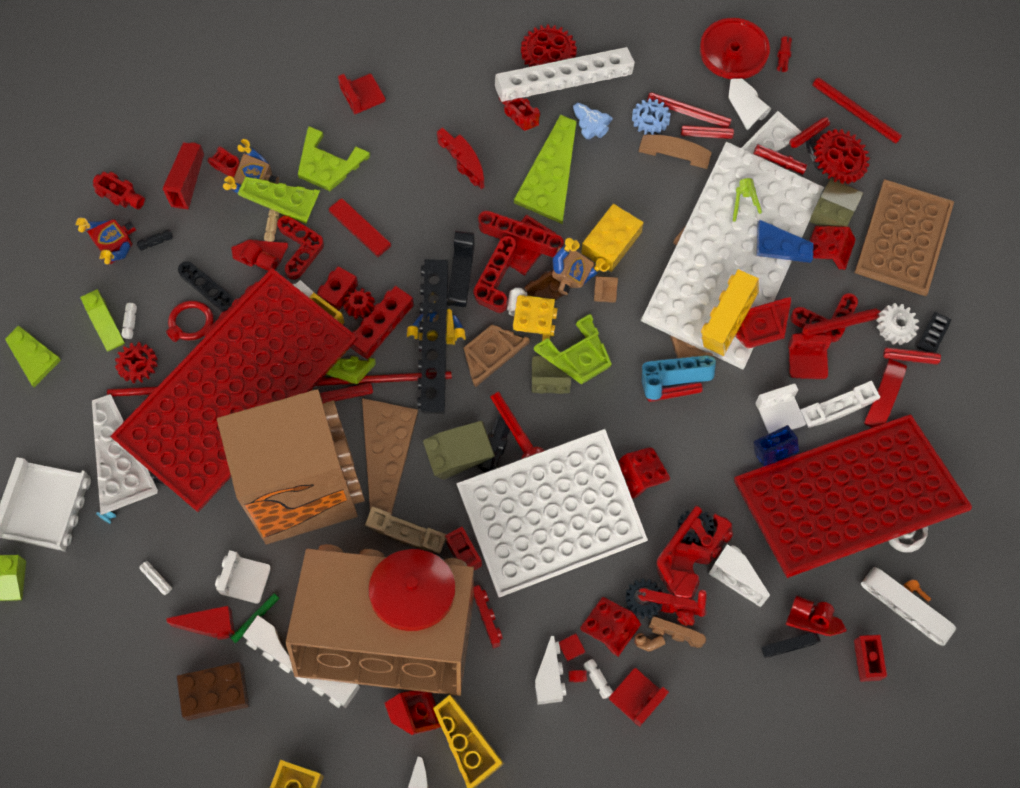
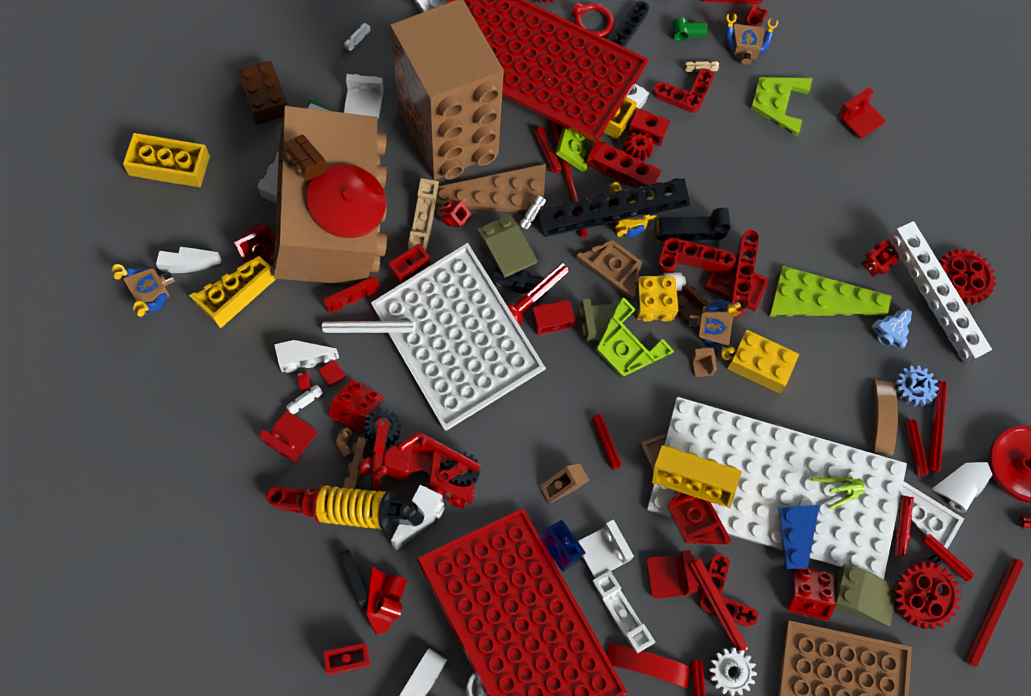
camera: 75 degrees right, 0 degrees up
(211, 622) = (321, 81): red slope -> none
(224, 232) = (683, 29): none -> green piece
(260, 253) = (671, 63): red panel -> none
(287, 200) = (729, 74): lime wing -> none
(359, 227) = (718, 137): red tile -> none
(362, 623) = (304, 157): none -> reddish brown brick
(409, 497) = (454, 213): none -> red brick
(419, 419) = (532, 212): none -> white axle
(466, 157) = (815, 215): red slope -> none
(527, 602) = (368, 326): none -> white axle
(540, 418) = (553, 317): none -> red brick
(642, 470) = (516, 418): red bracket -> none
(675, 371) = (626, 437): dark azure beam -> none
(713, 435) = (564, 482): none -> medium nougat slope
(728, 640) = (347, 506): none -> piece

